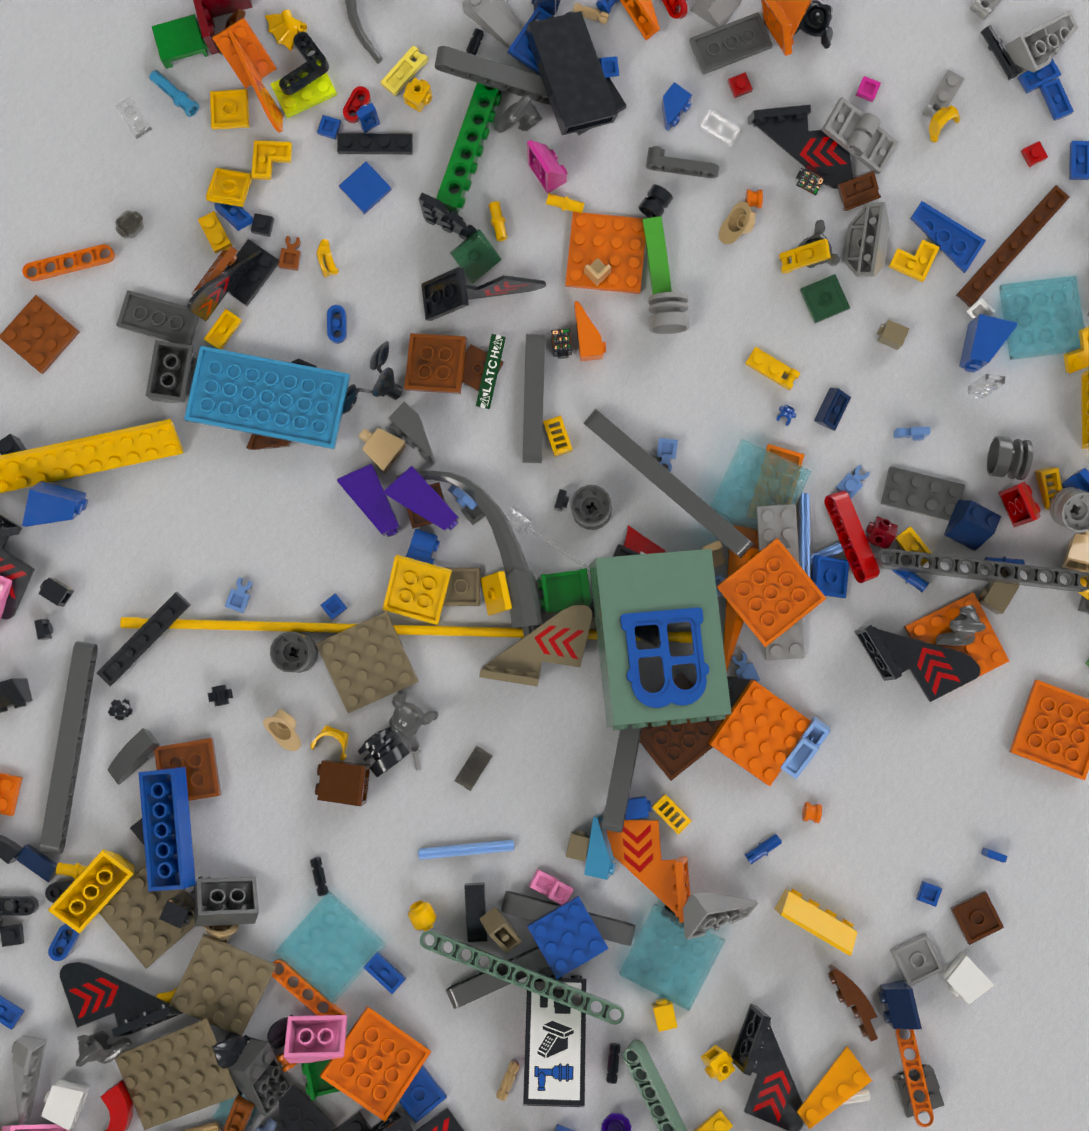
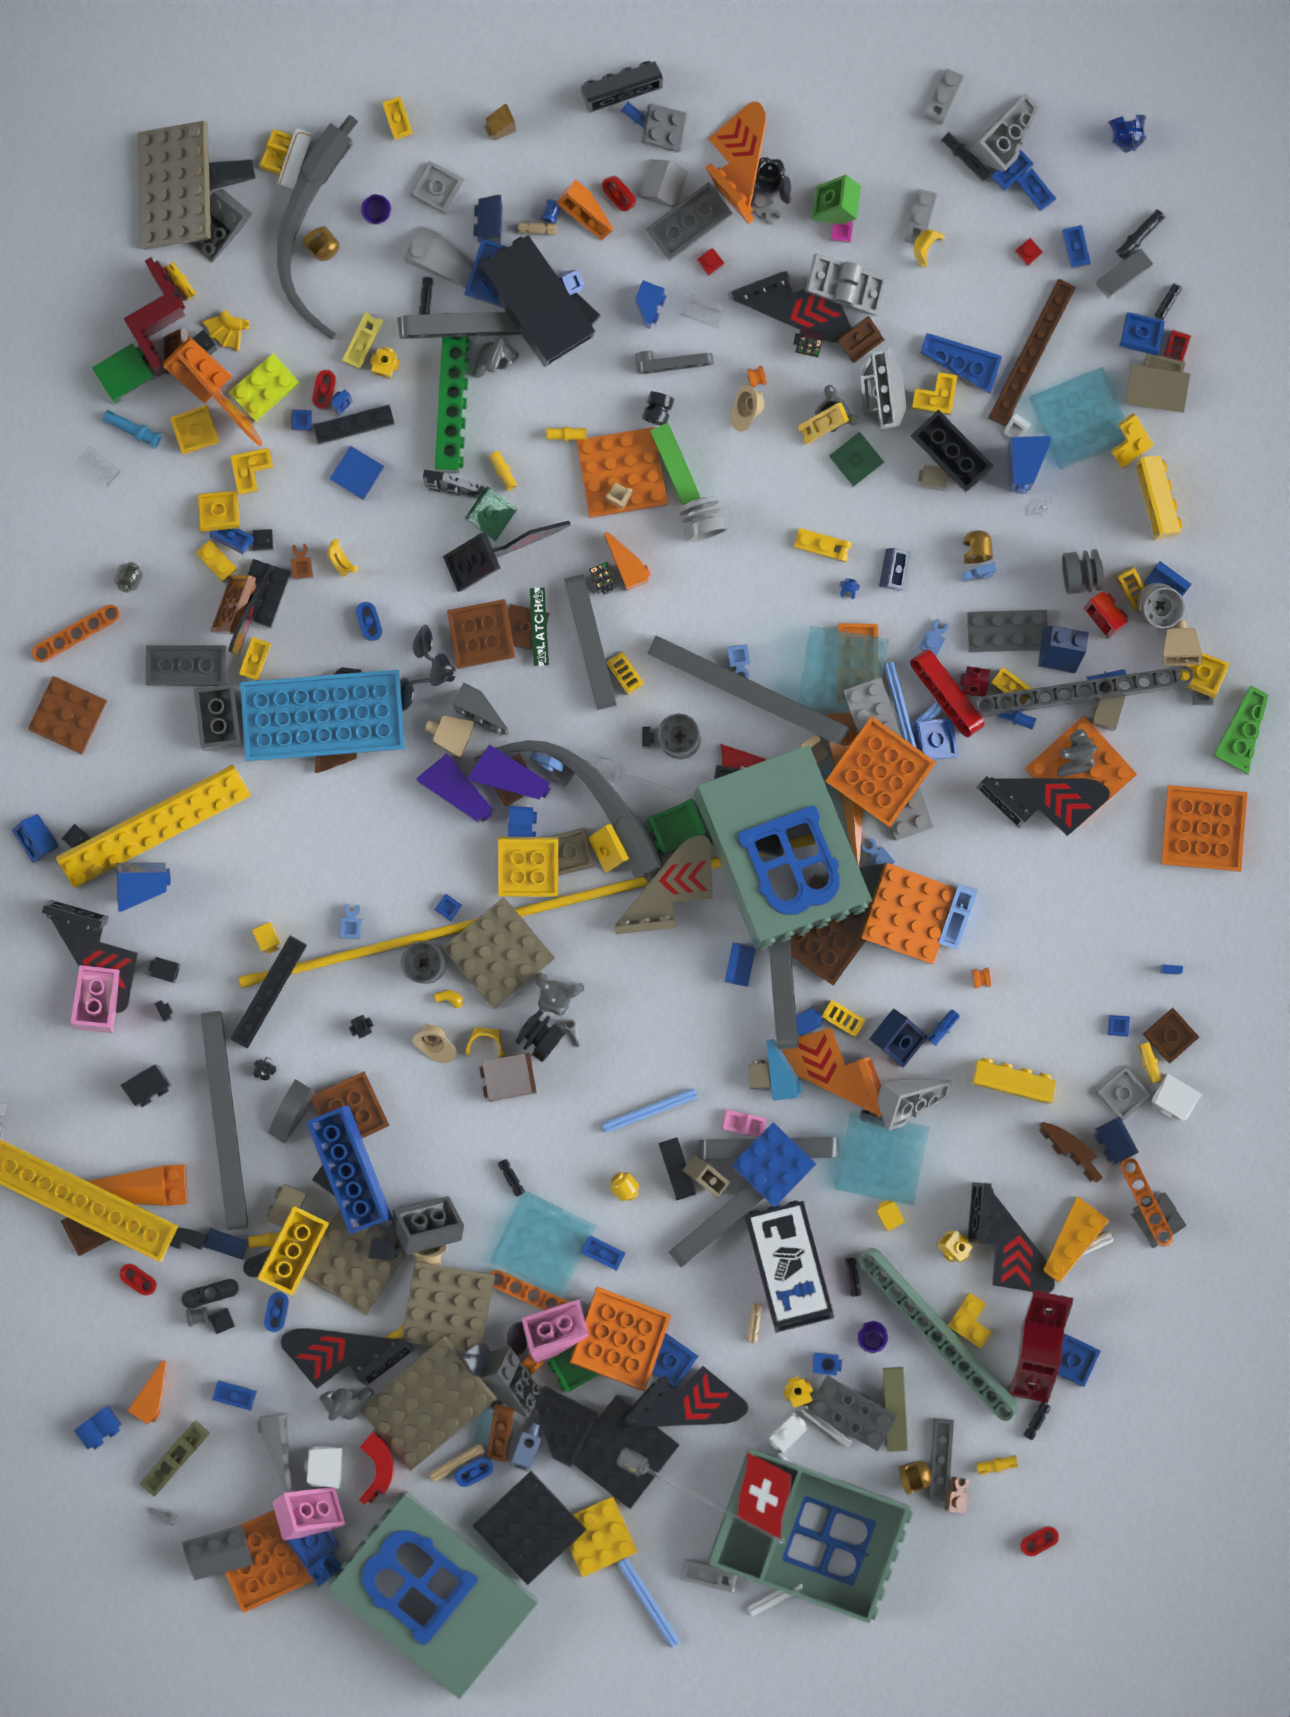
camera: 20 degrees left, 0 degrees up
(105, 837) = (286, 1199): none -> dark tan brick
(157, 588) = (267, 938): none -> yellow brick
(261, 32) = (205, 342): none -> black brick
(310, 66) = (267, 364): black beam -> none
(312, 690) = (451, 996): none -> yellow arm
(473, 768) = (634, 1028): clear smoke slope -> none
(529, 984) = (730, 1208): sand green beam -> none
(545, 166) = (537, 402): dark pink slope -> none
(588, 736) = (740, 964): none -> blue panel
(718, 847) = (898, 1037): none -> dark blue slope
(802, 48) = (762, 205): none -> light grey plate
(871, 59) = (836, 201): none -> bright green slope
(918, 313) = (952, 451): none -> black slope
(920, 409) = (980, 545): none -> pearl gold helmet
(950, 938) = (1150, 1063): none -> yellow pin

